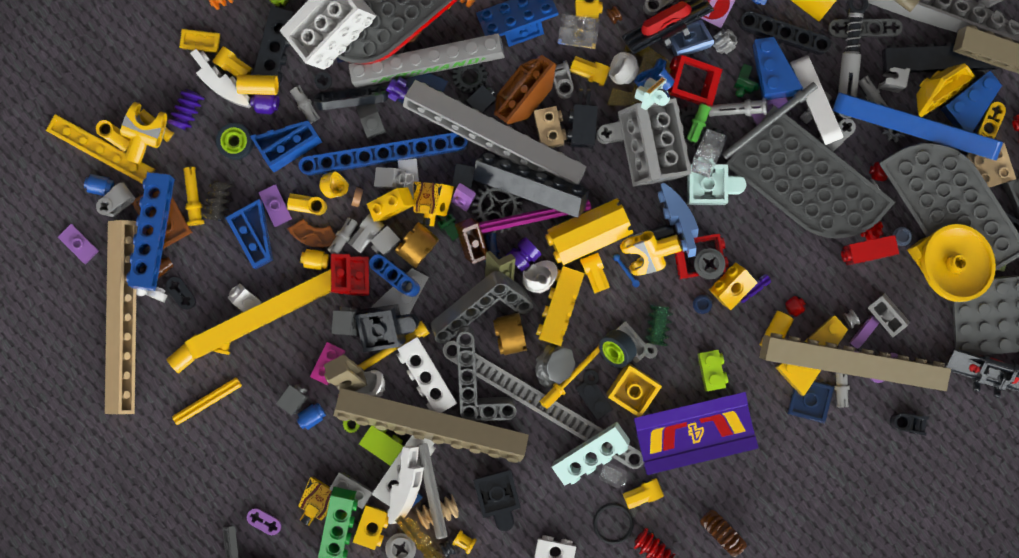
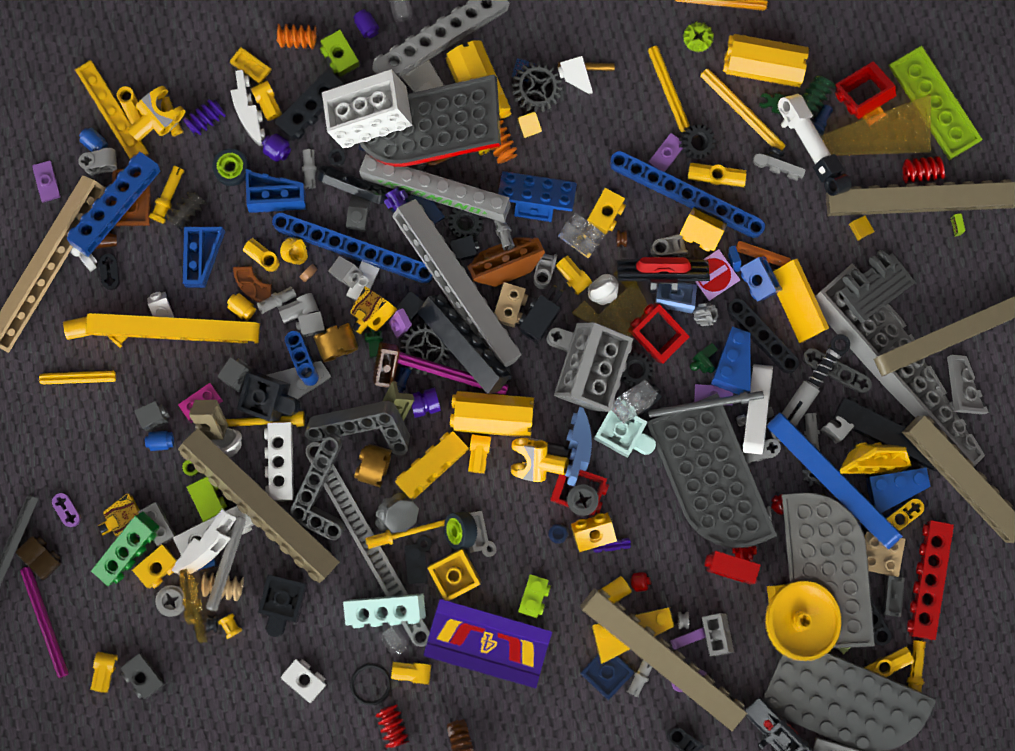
camera: 30 degrees right, 5 degrees down
(257, 84) = (277, 128): yellow pin -> none
(275, 205) = (234, 241): medium lavender plate -> none
(349, 275) = (263, 336): red slope -> none
(390, 204) = (333, 294): yellow brick -> none
(508, 66) = (503, 232): none -> light grey pin
(540, 276) = (428, 429): white piece -> none
(616, 257) = (505, 451): blue hinge -> none
(652, 93) = (613, 321): light aqua hips -> none
(655, 73) = (624, 312): blue beam -> none
(658, 325) = (508, 530): clear green piece -> none
(698, 123) = (642, 371): bright green axle -> none
(748, 111) = (694, 383): light grey pin -> none
(903, 236) = (769, 572): sand blue plate -> none

